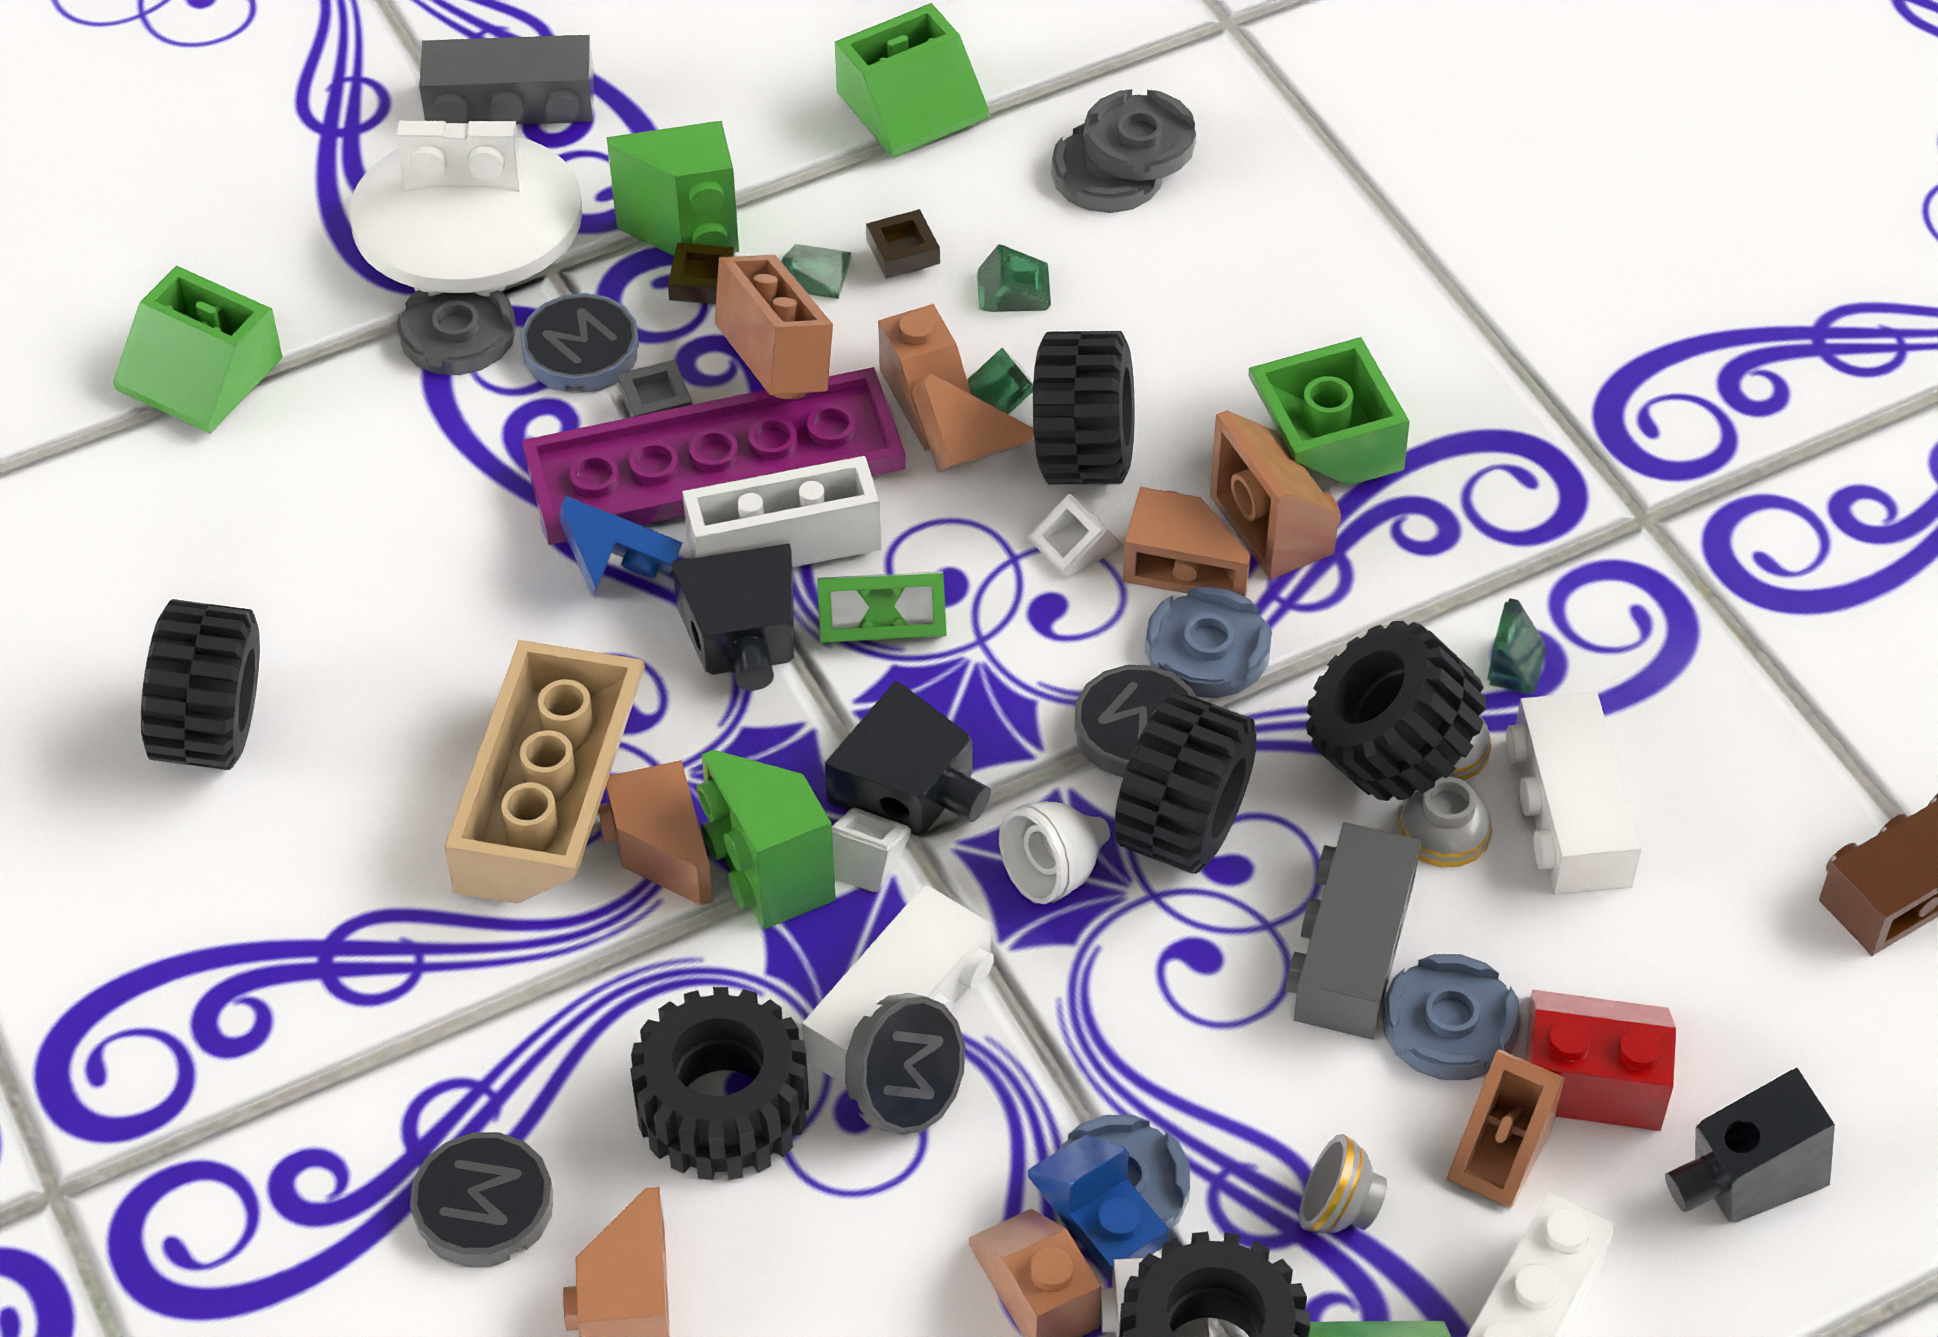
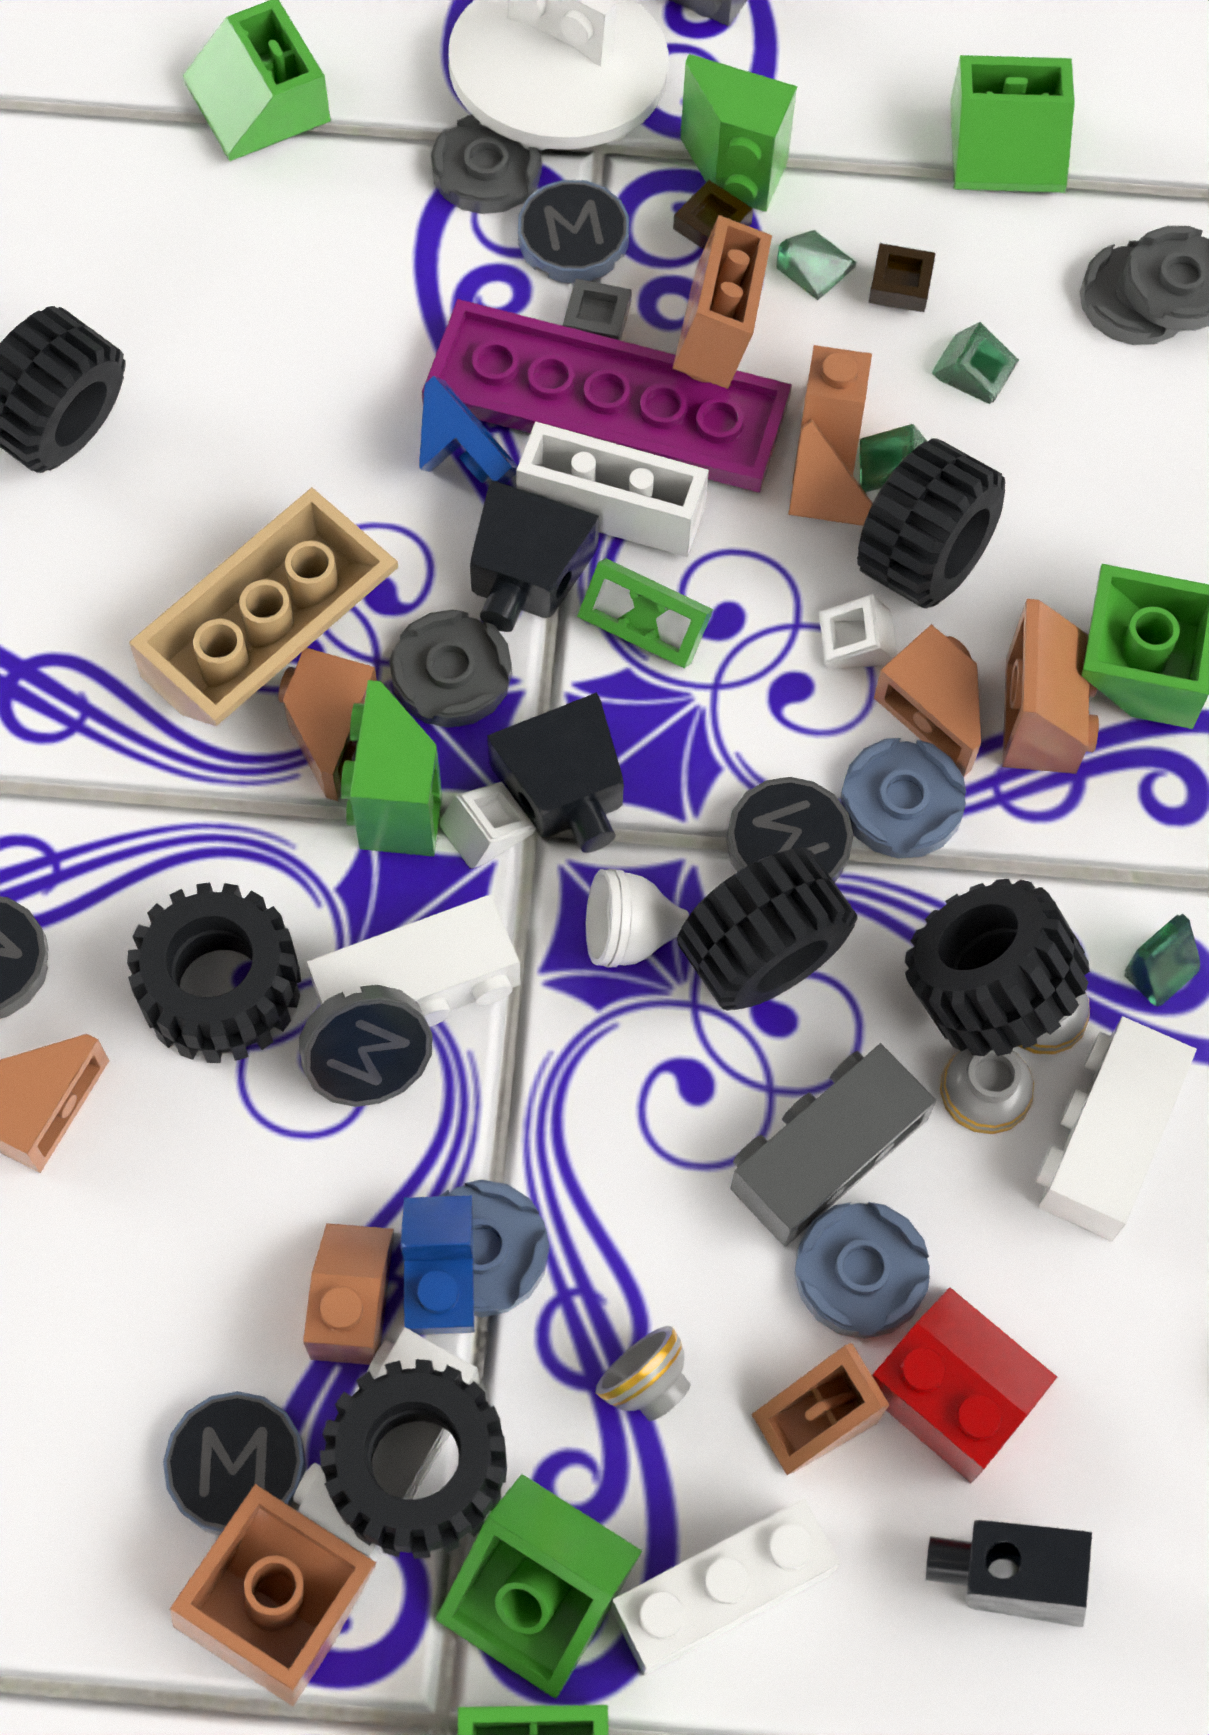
camera: 30 degrees right, 15 degrees up
(739, 723) = (450, 668): none -> dark grey tile

